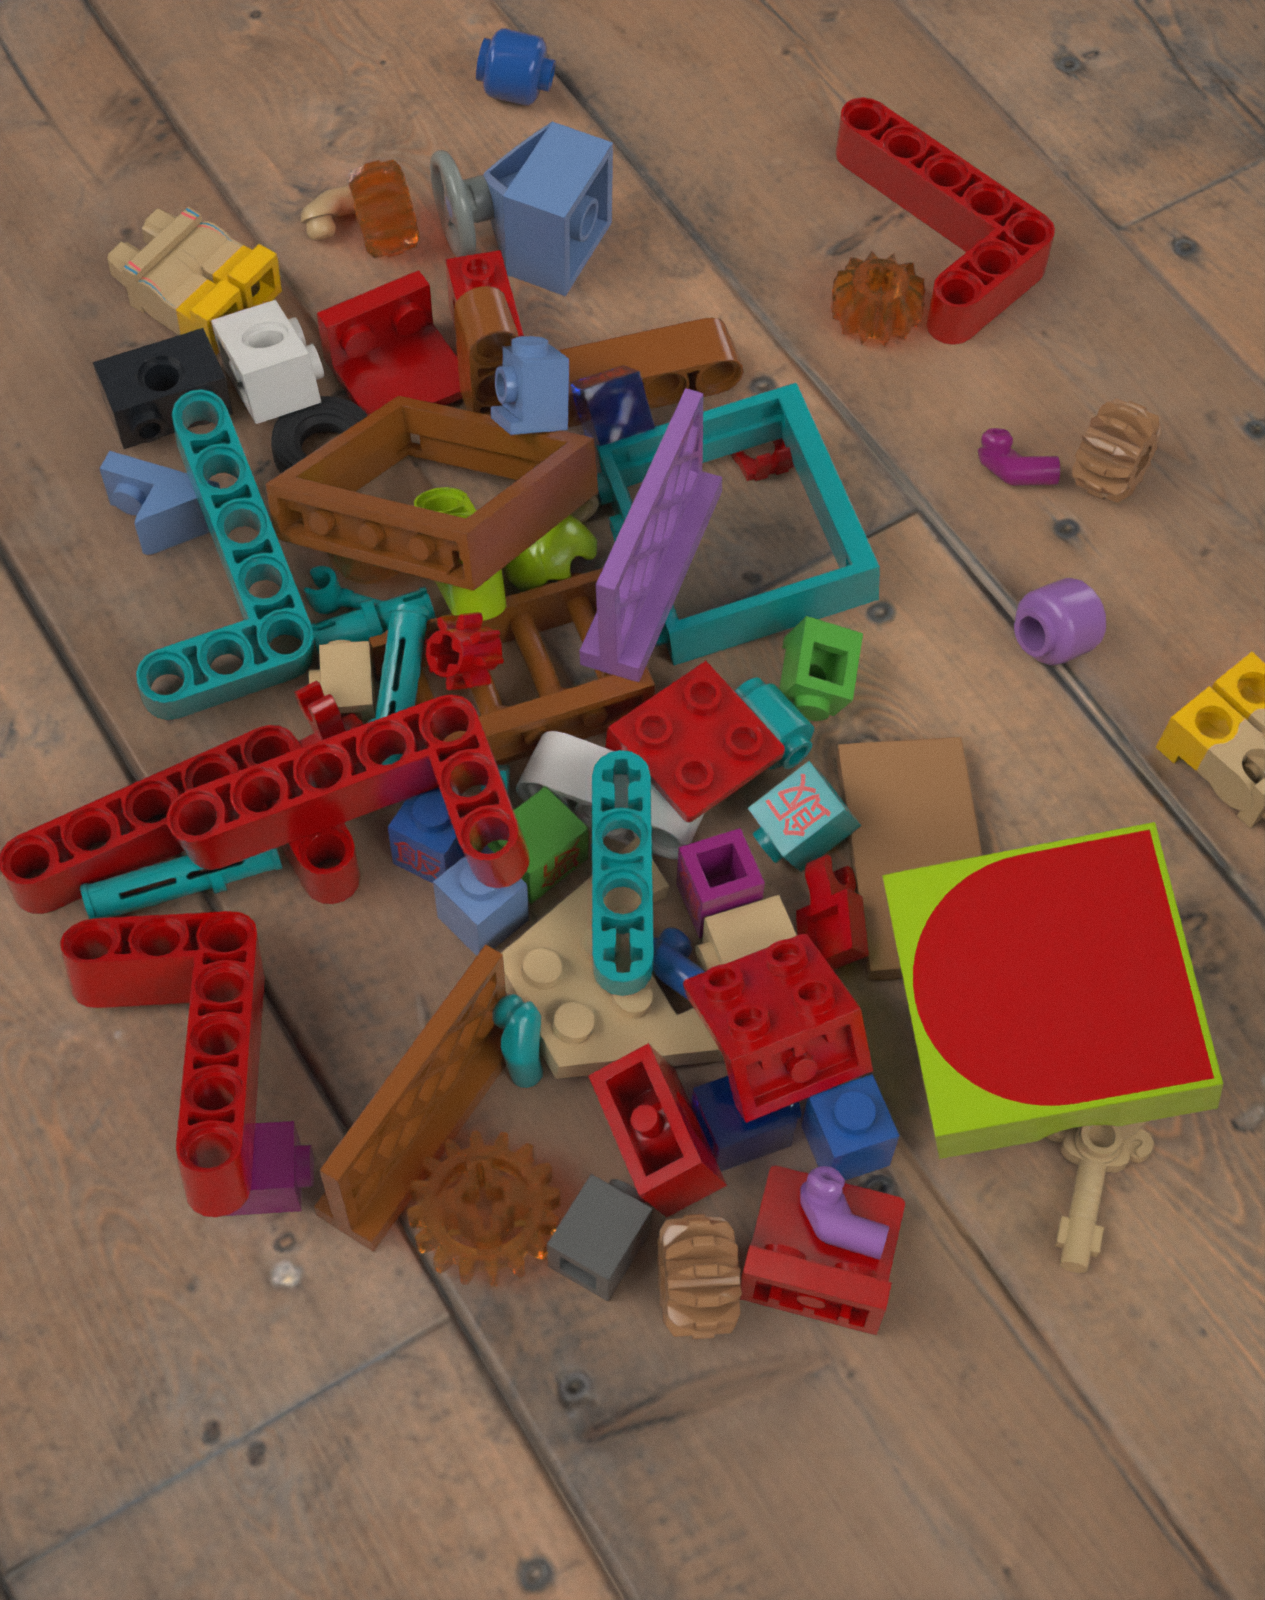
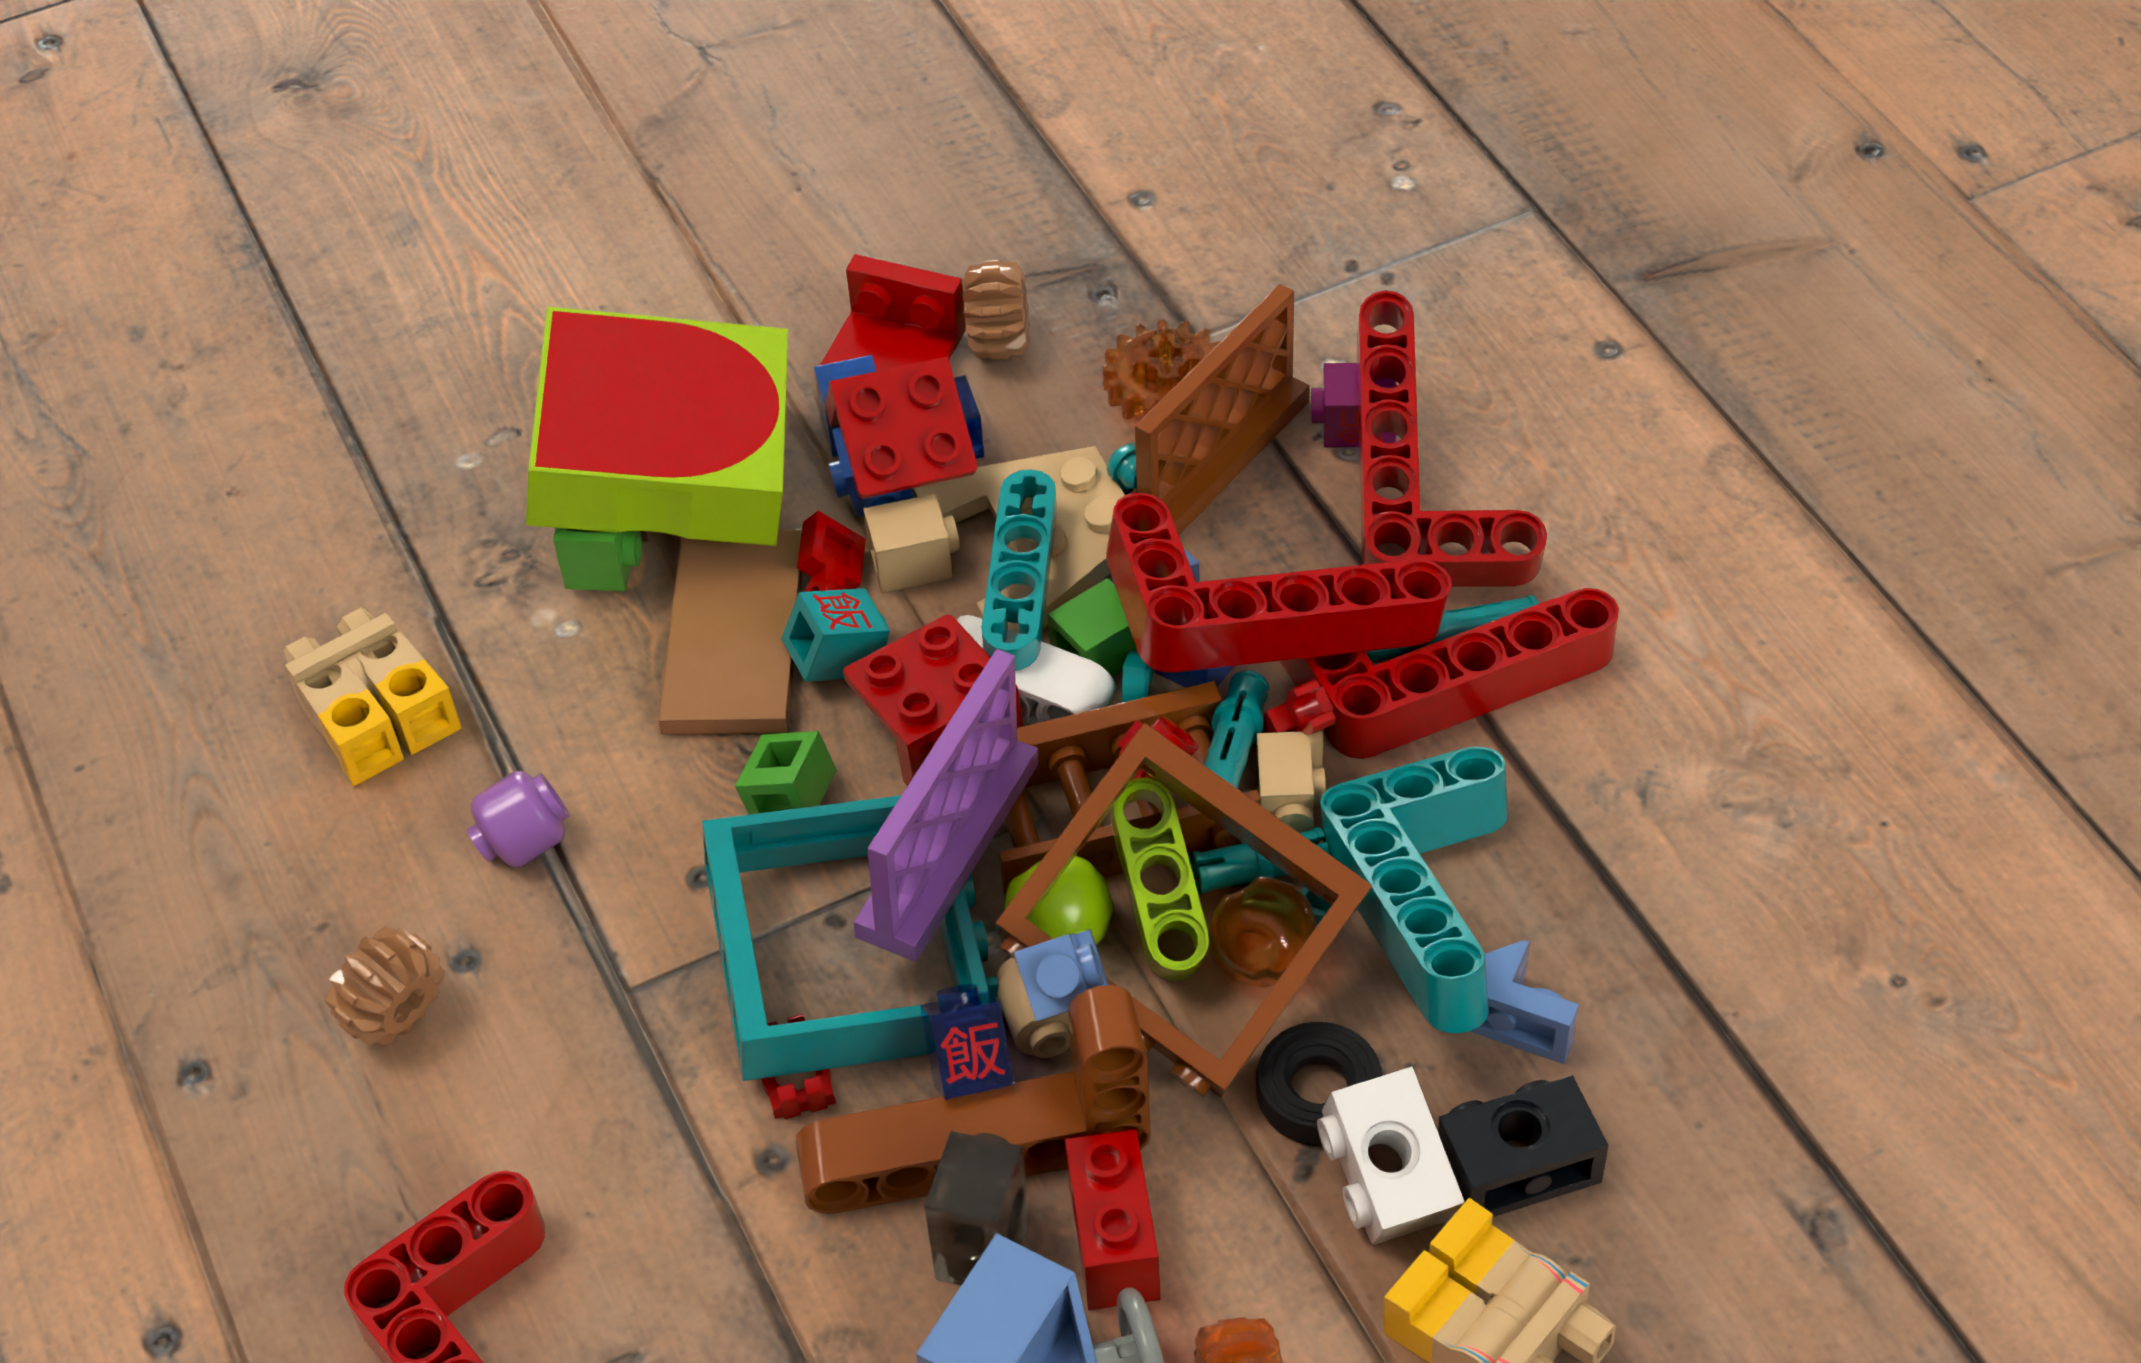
camera: 170 degrees left, 10 degrees down
(389, 346) = (1231, 1178): red bracket -> none
(586, 286) = (973, 1198): none -> clear smoke brick
(600, 1235) = (1070, 351): dark grey brick -> none
(657, 1131) = (1016, 396): red brick -> none
(671, 959) = (981, 525): blue arm -> none
(717, 876) = (928, 575): magenta brick -> none
(780, 718) = (852, 734): teal brick -> none
(833, 1219) = (870, 341): medium lavender arm -> none
(878, 298) = (601, 1234): clear orange gear -> none
(1011, 466) = (502, 1016): magenta arm -> none

